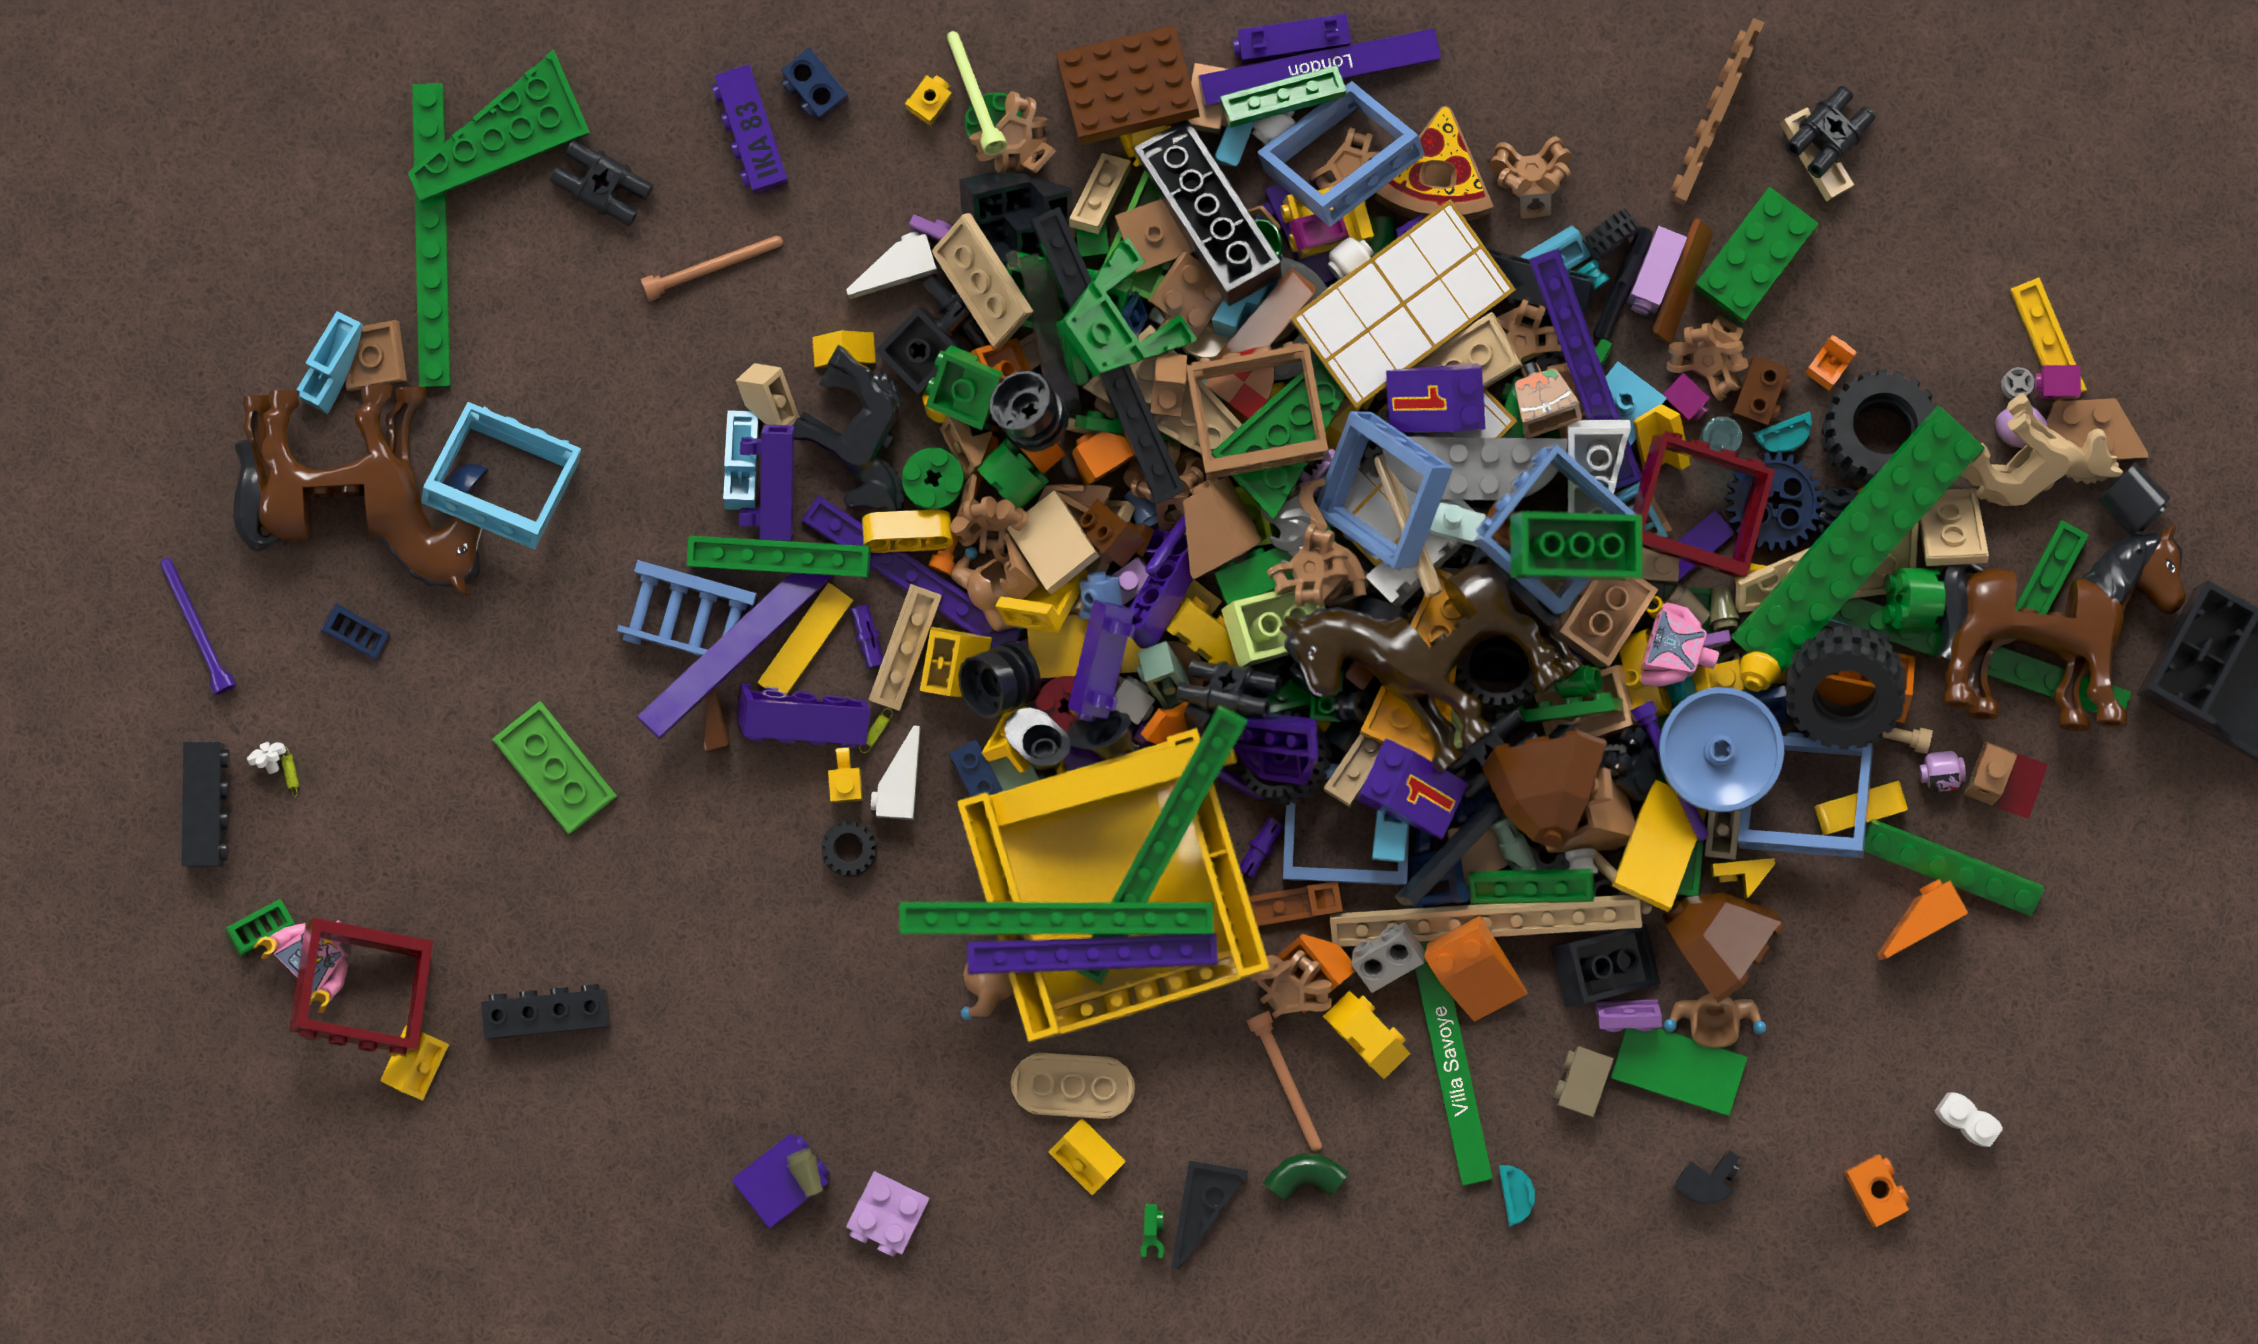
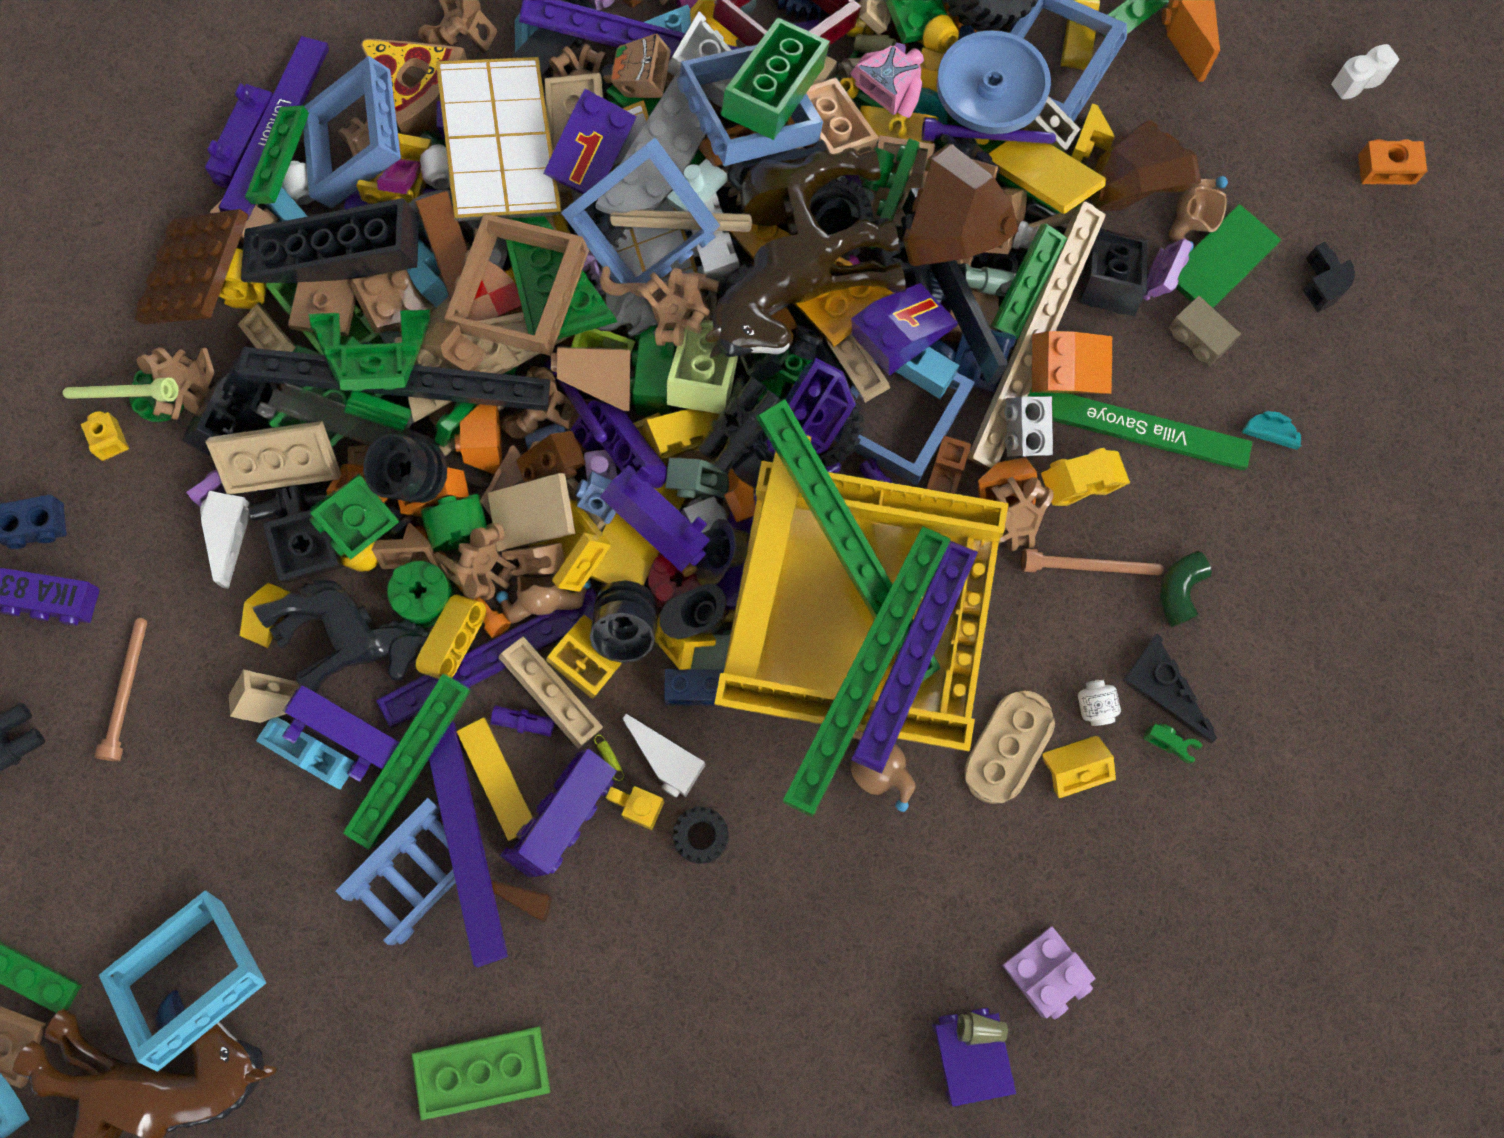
camera: 65 degrees left, 10 degrees down
(1153, 1147) = (1099, 703): none -> white head

